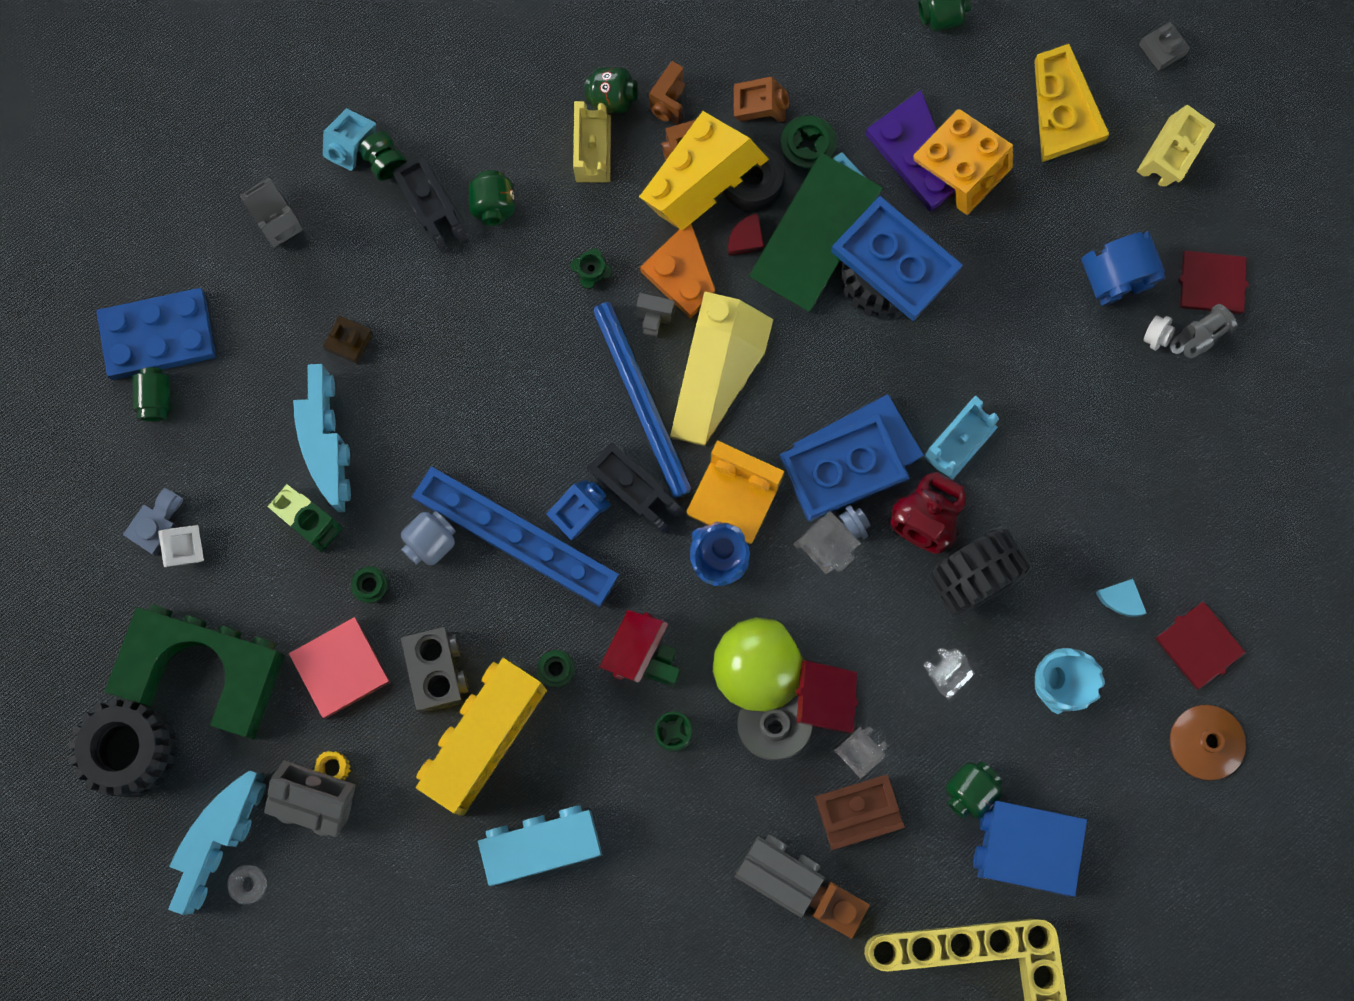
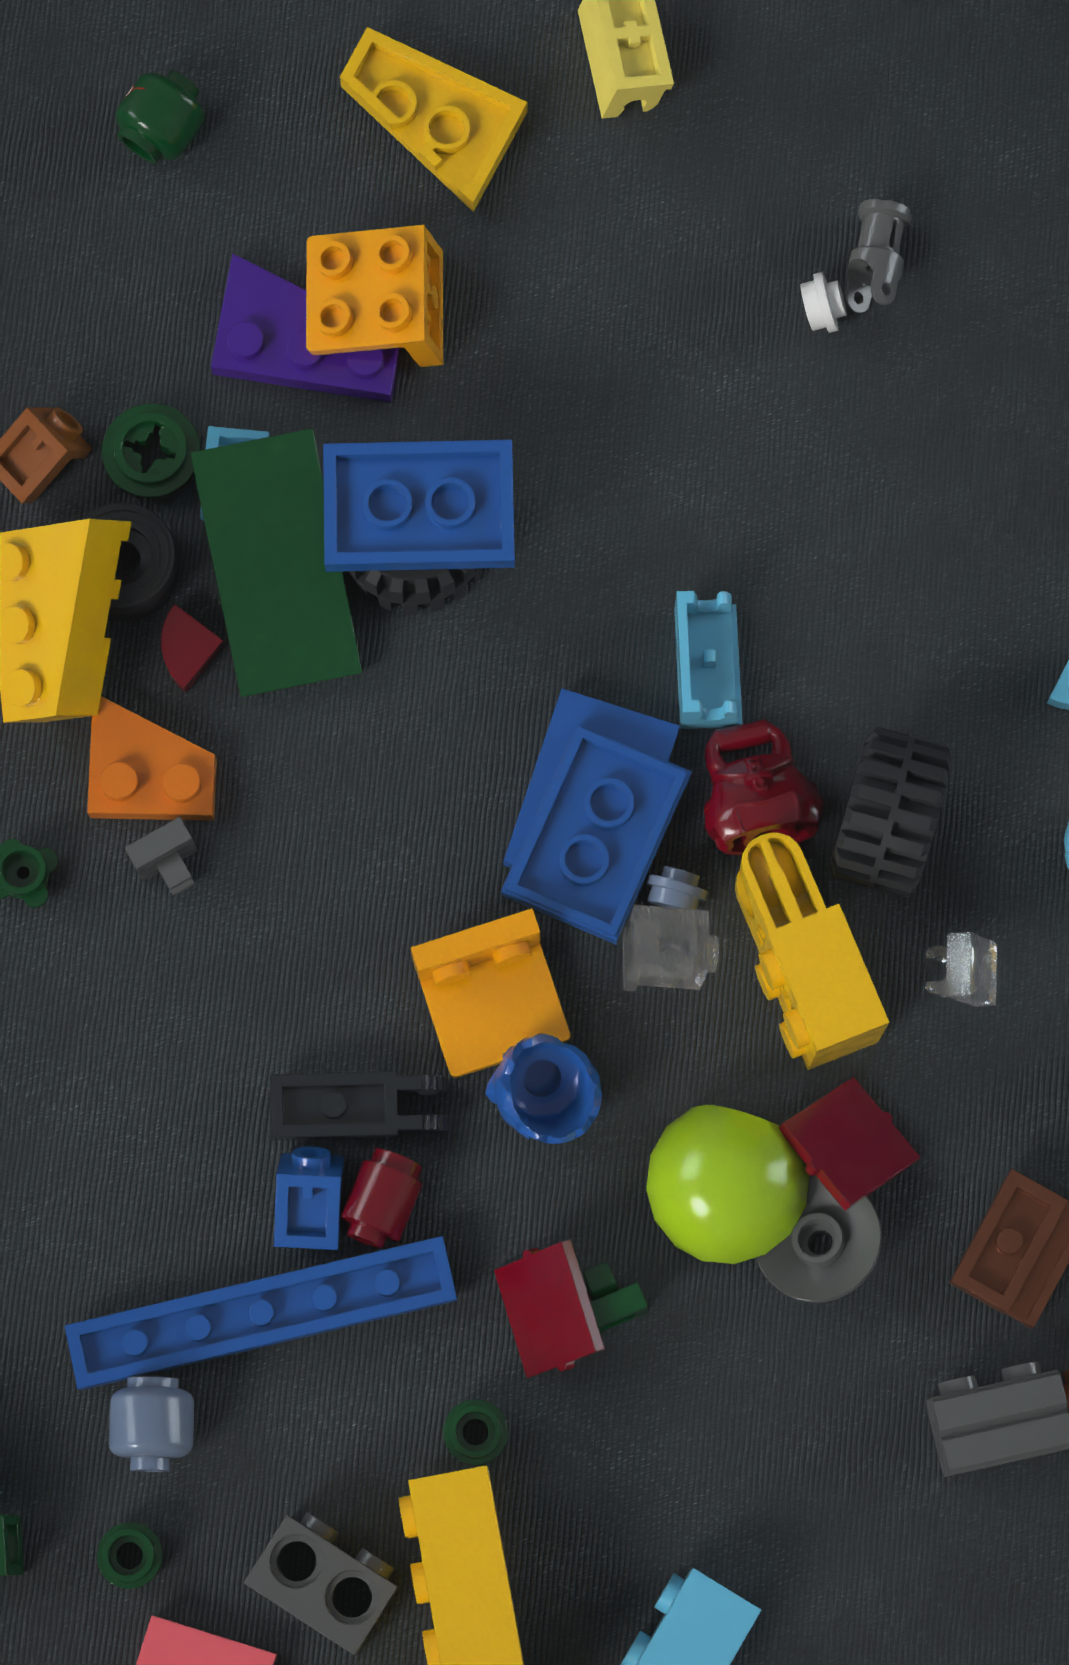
camera: 45 degrees left, 0 degrees up
(609, 536) = (382, 1198): none -> dark red brick
(642, 400) = (254, 983): blue axle -> none
(673, 731) = (708, 1363): dark green wheel -> none
(723, 354) = (310, 839): light yellow wedge -> none
(861, 751) = (954, 1171): clear tile -> none
(883, 600) = (806, 955): none -> yellow brick
(1124, 267) = (707, 260): blue brick -> none
(1213, 280) = (826, 177): dark red piece -> none

